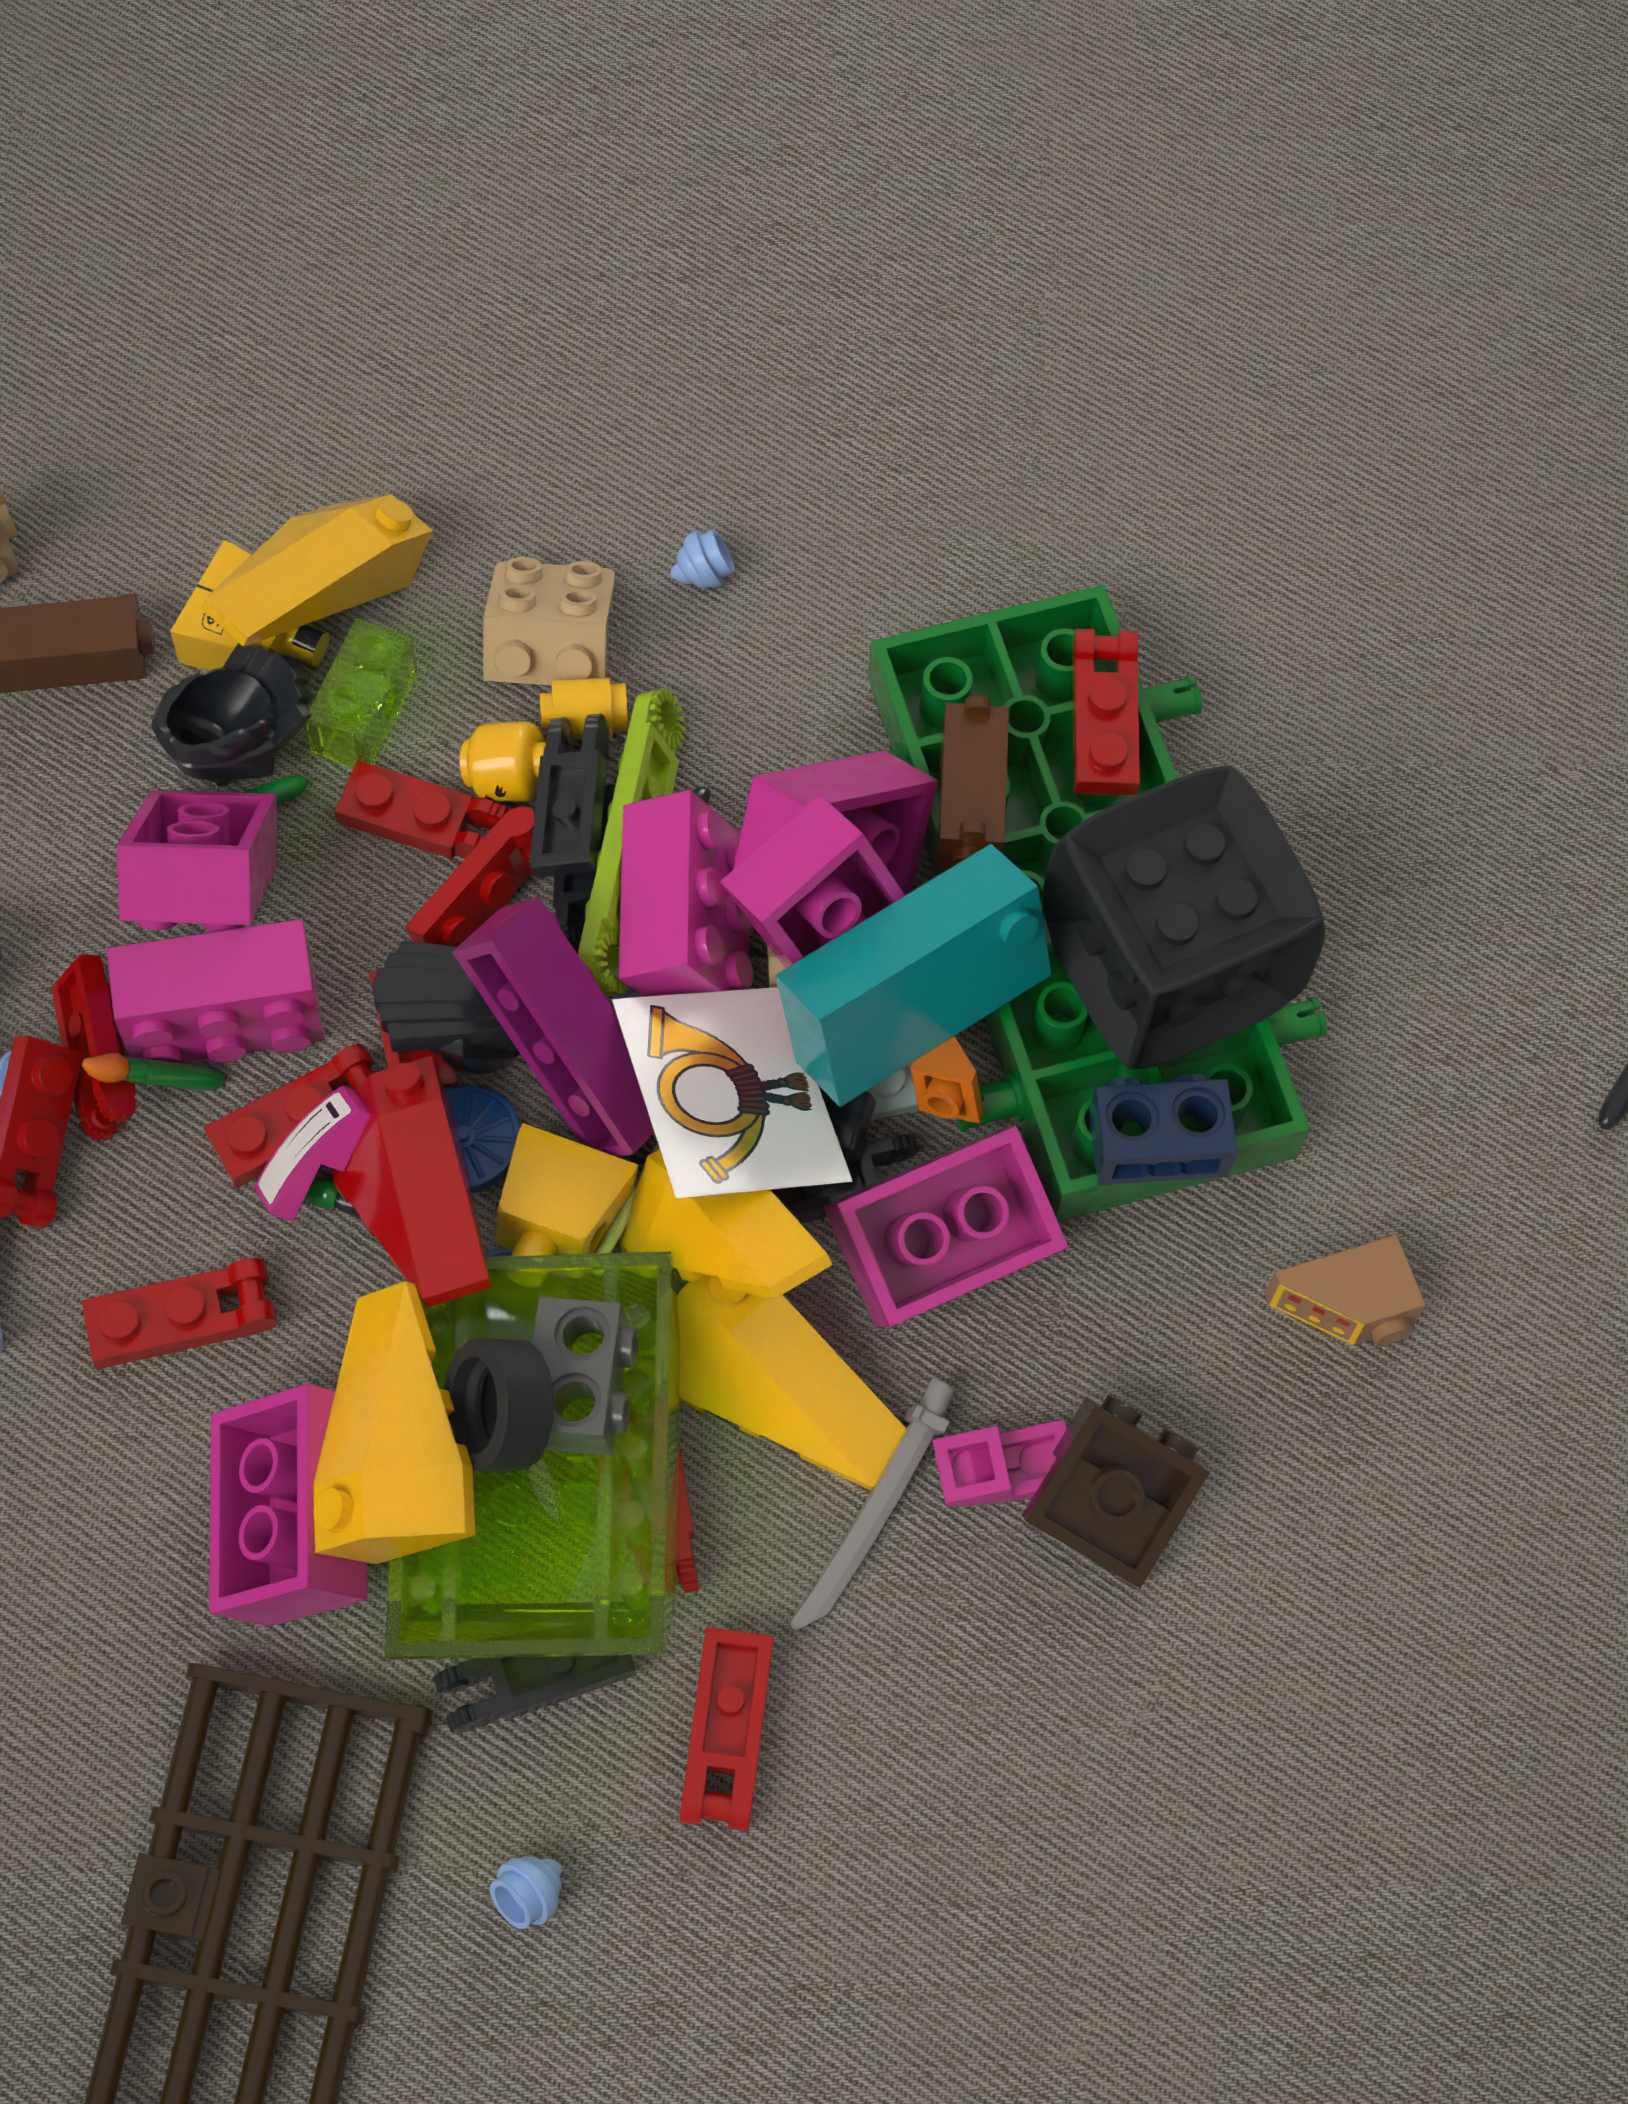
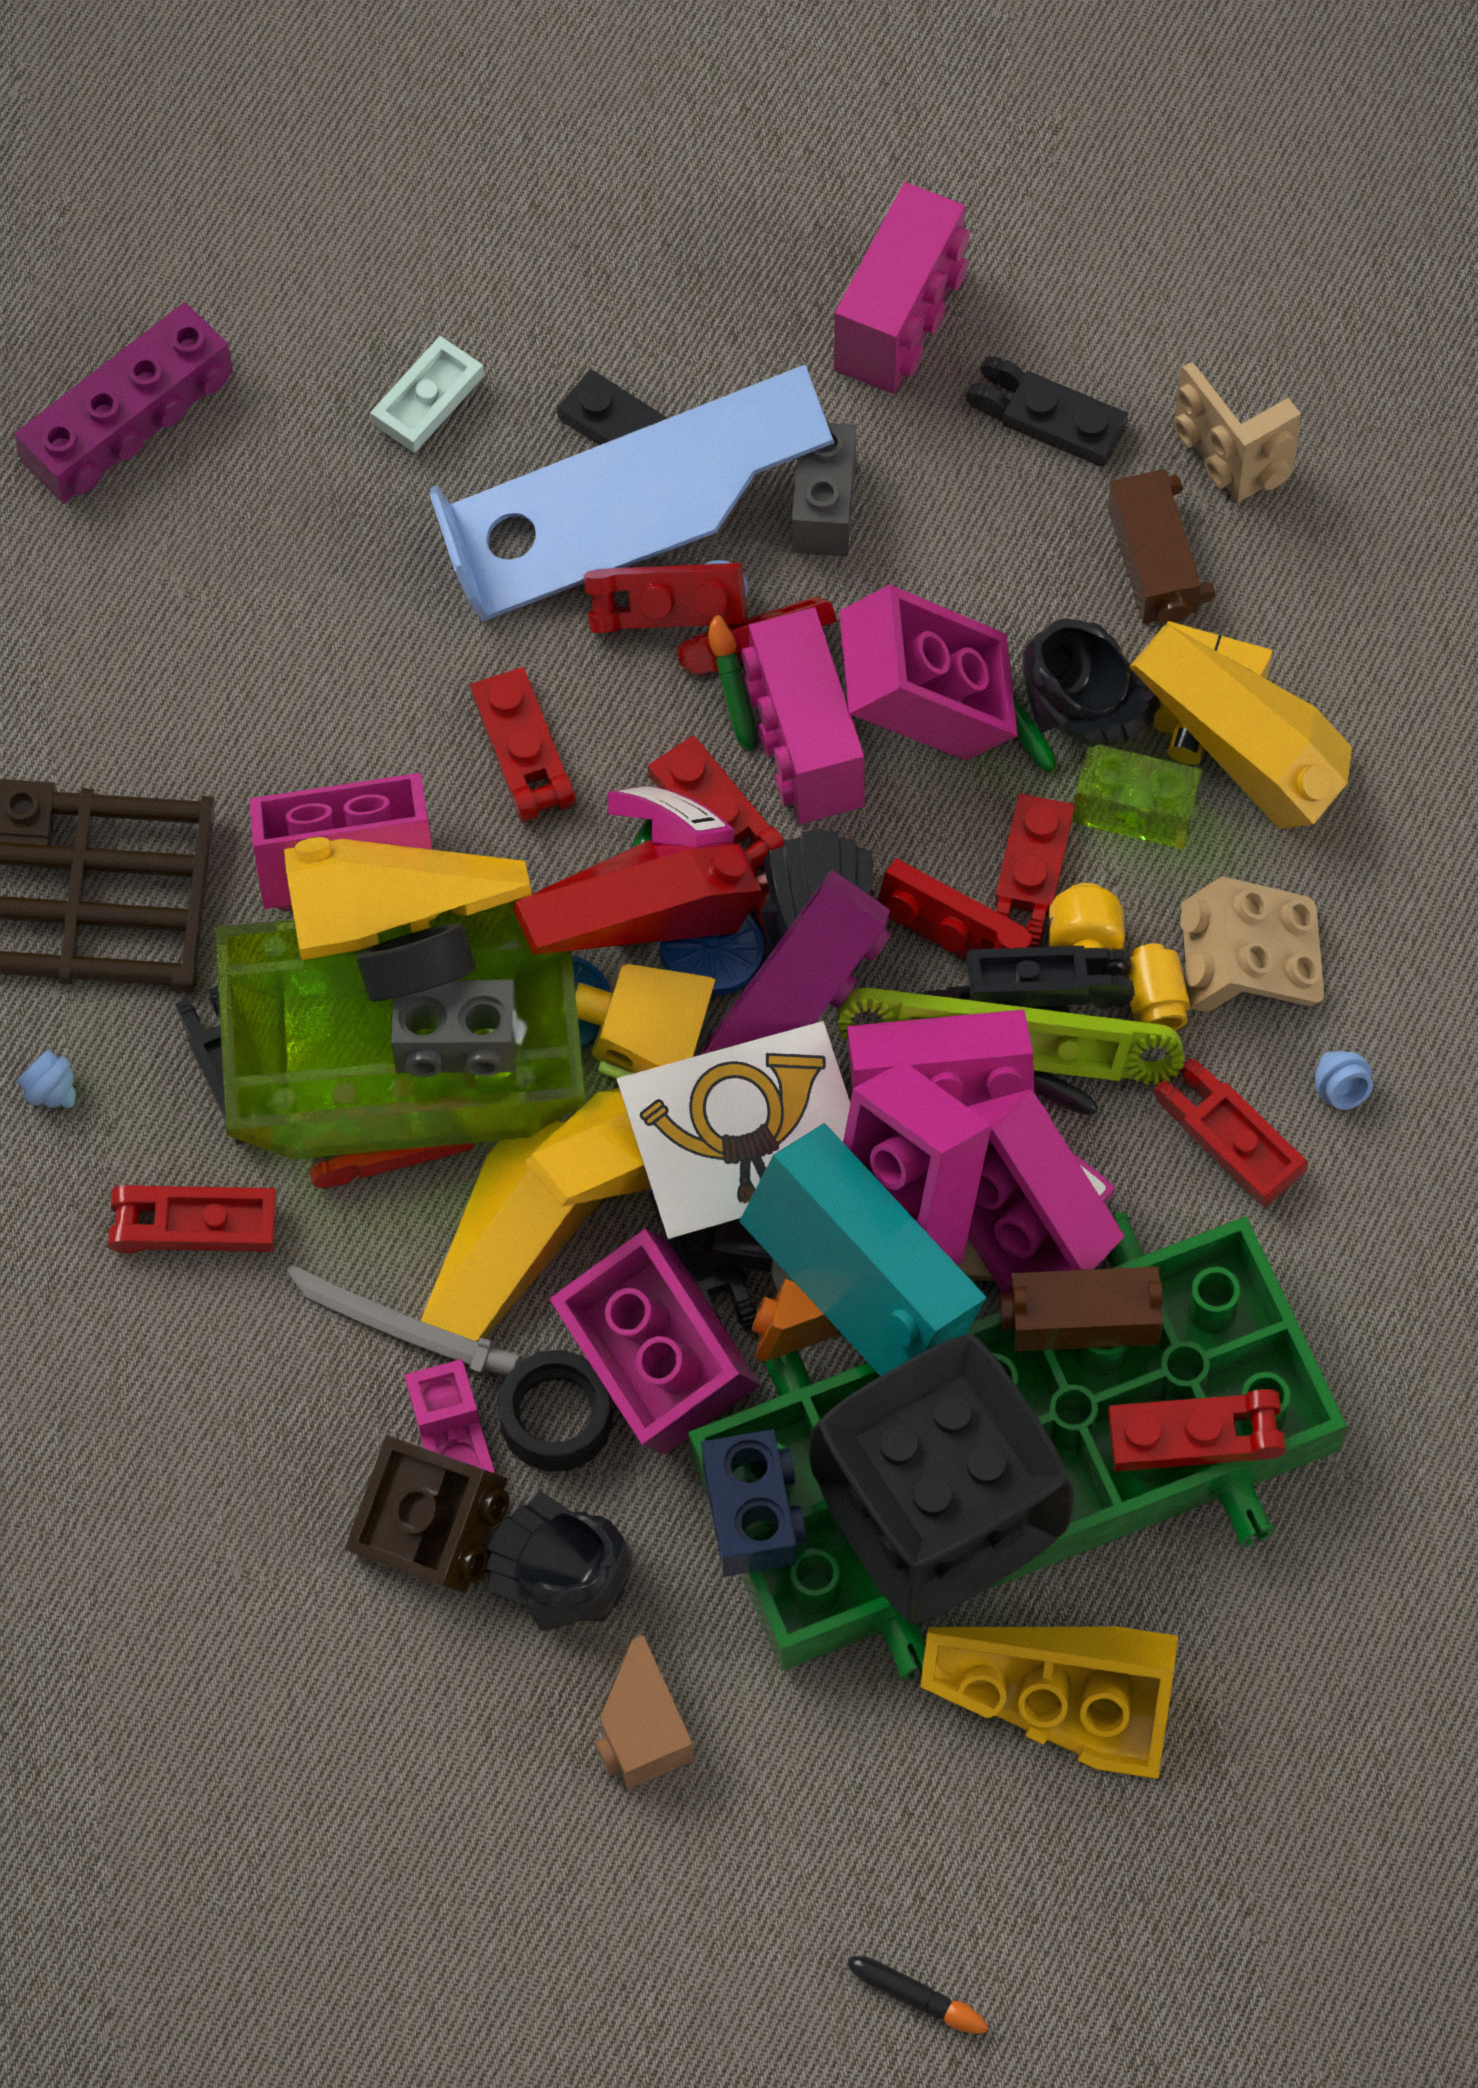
camera: 90 degrees right, 0 degrees up
(752, 664) = (1233, 1134): none -> red hinge
(998, 1301) = (554, 1455): none -> black tyre
(1178, 1355) = (558, 1563): none -> black hair
(1356, 856) = (1075, 1686): none -> yellow wedge

